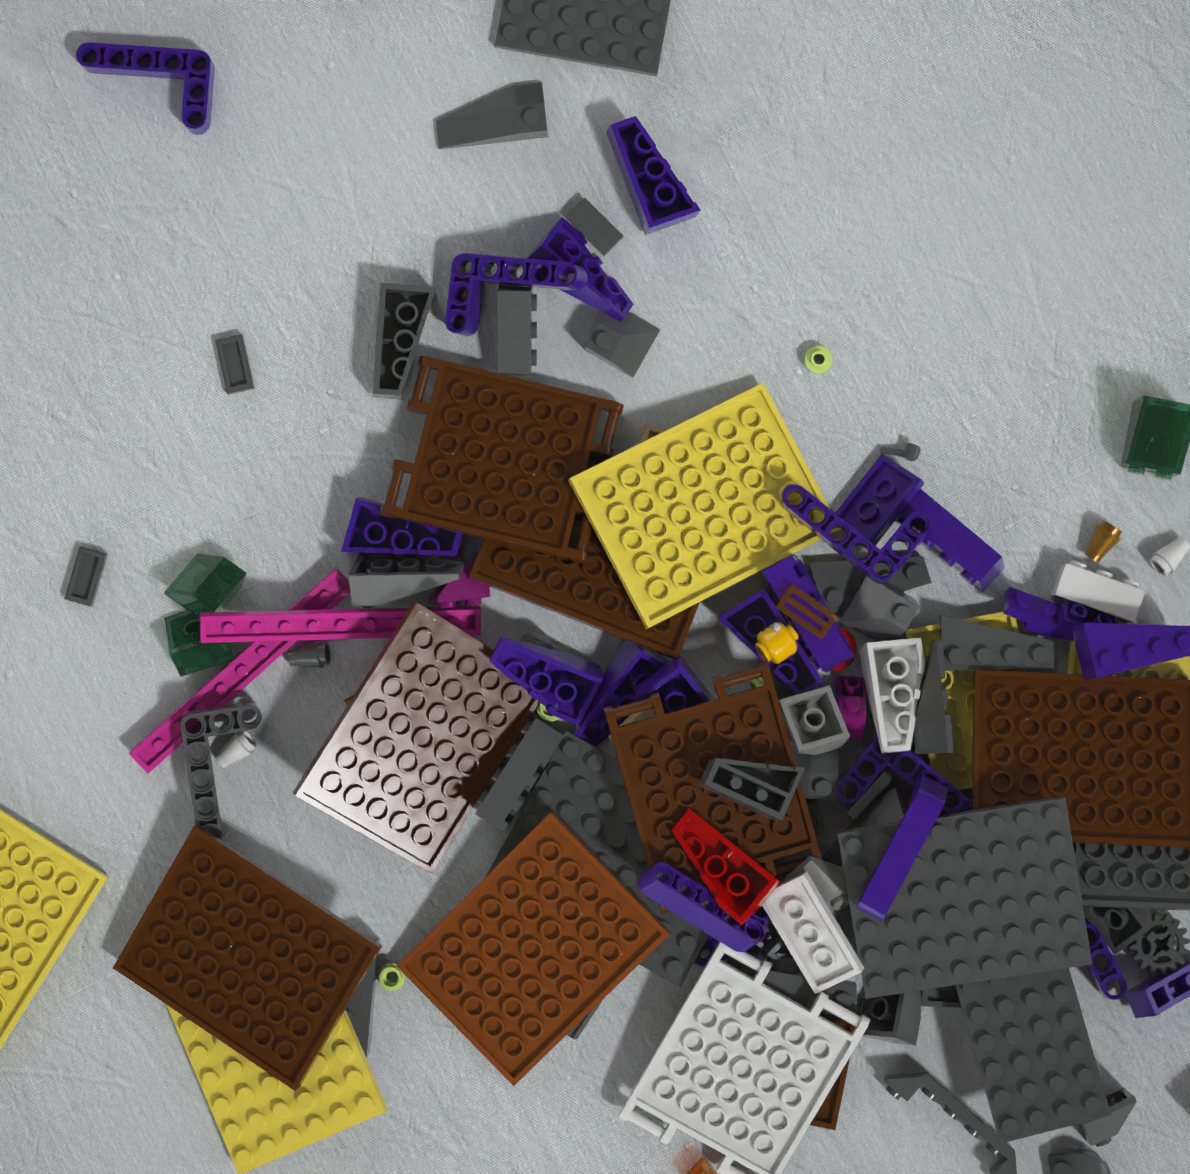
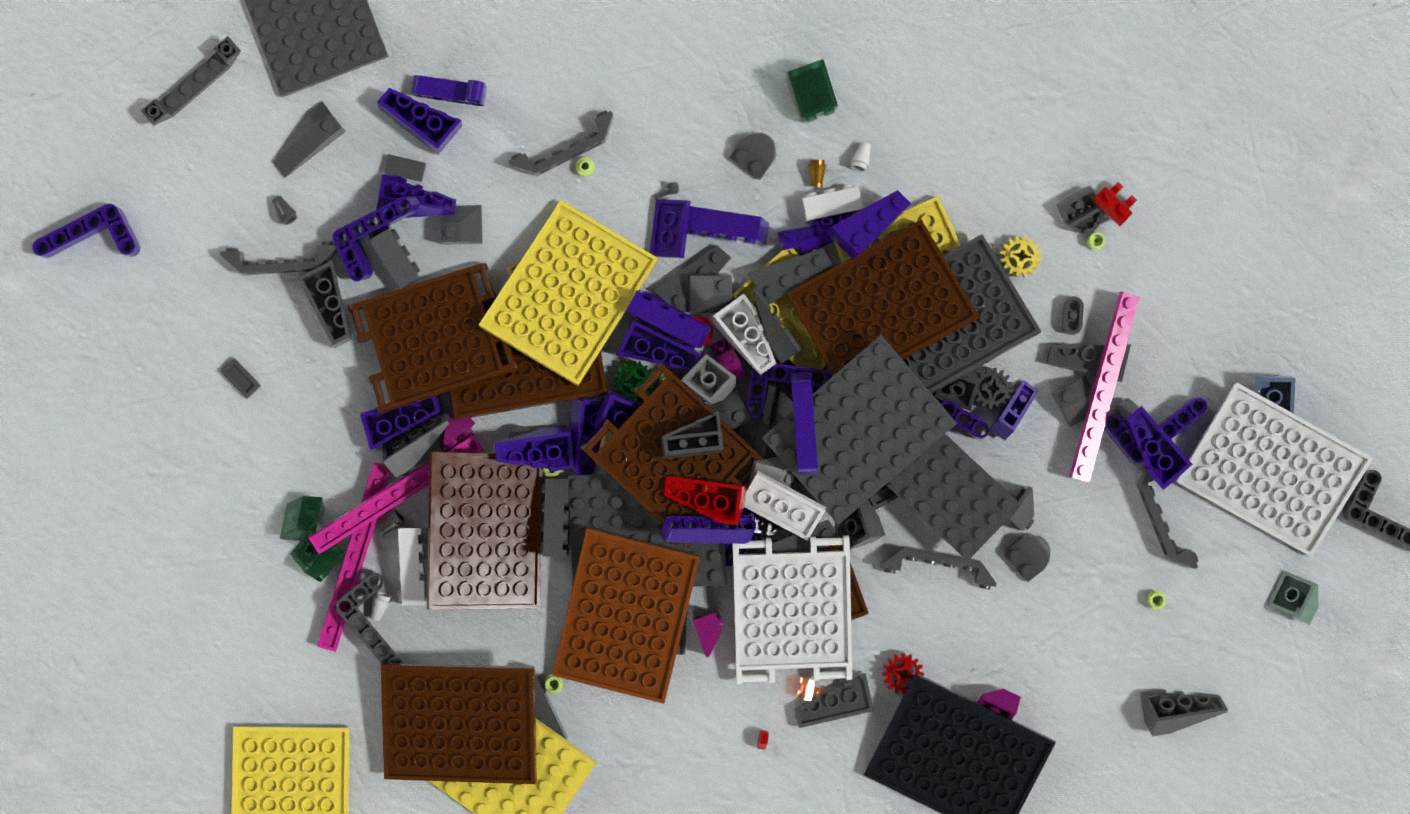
camera: 40 degrees left, 0 degrees up
(86, 576) = (228, 557): dark grey tile -> none
(306, 726) = (413, 565): none -> white wedge
(318, 213) = (236, 258): none -> dark grey slope
(413, 190) = (284, 211): none -> dark grey cone
(624, 1030) = (708, 629): none -> magenta slope
(707, 164) = (447, 90): none -> dark purple beam
(723, 651) = (633, 372): none -> green gear
(743, 310) = (522, 163): none -> dark grey slope
(777, 642) = (659, 347): yellow head -> none
(826, 625) = (664, 318): clear orange tile -> none
(854, 538) = (667, 259): dark purple beam -> none
(1040, 471) = (755, 153): none -> dark grey slope

